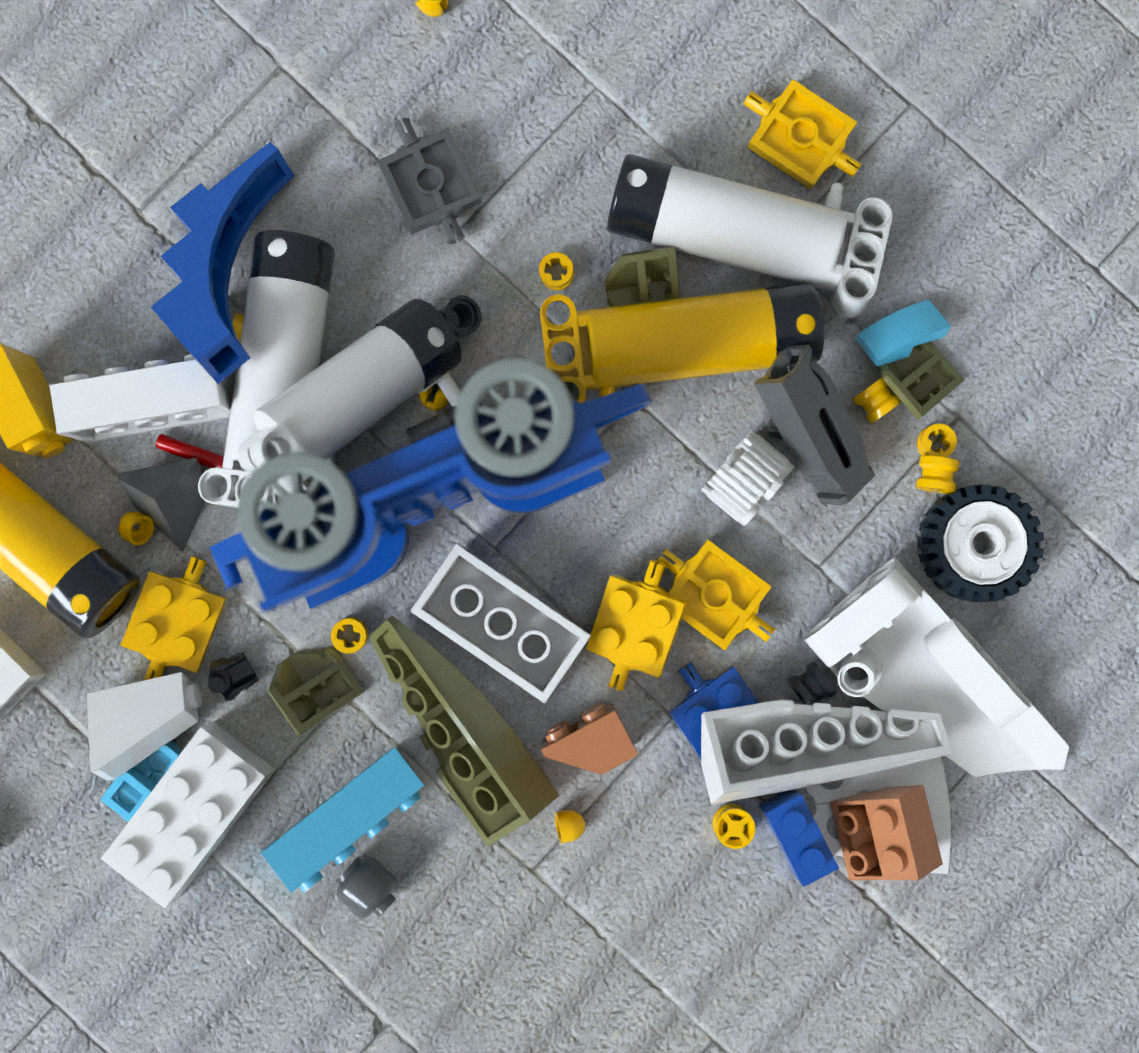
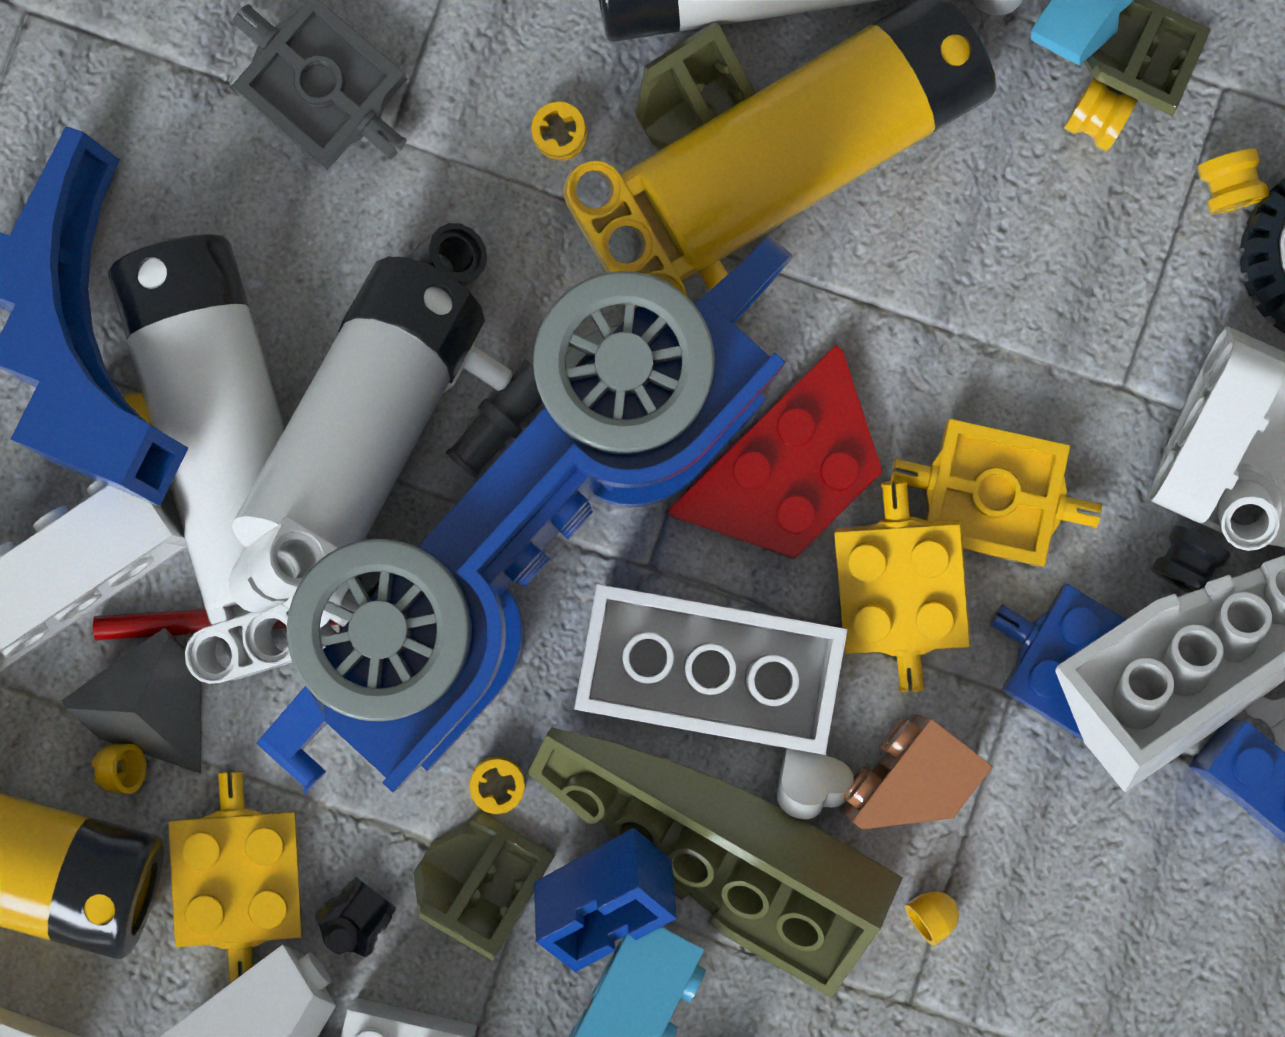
camera: 25 degrees left, 0 degrees up
(378, 728) = (603, 897): none -> blue brick
(439, 401) = (477, 393): yellow hinge -> none
(531, 716) = (811, 782): none -> white tile
(603, 526) = (791, 467): none -> red wing
(738, 832) = (1180, 815): yellow wheel -> none
(748, 478) = (967, 304): white brick -> none
(814, 426) = (1031, 189): dark grey piece -> none
(949, 440) = (1225, 124): yellow bush -> none

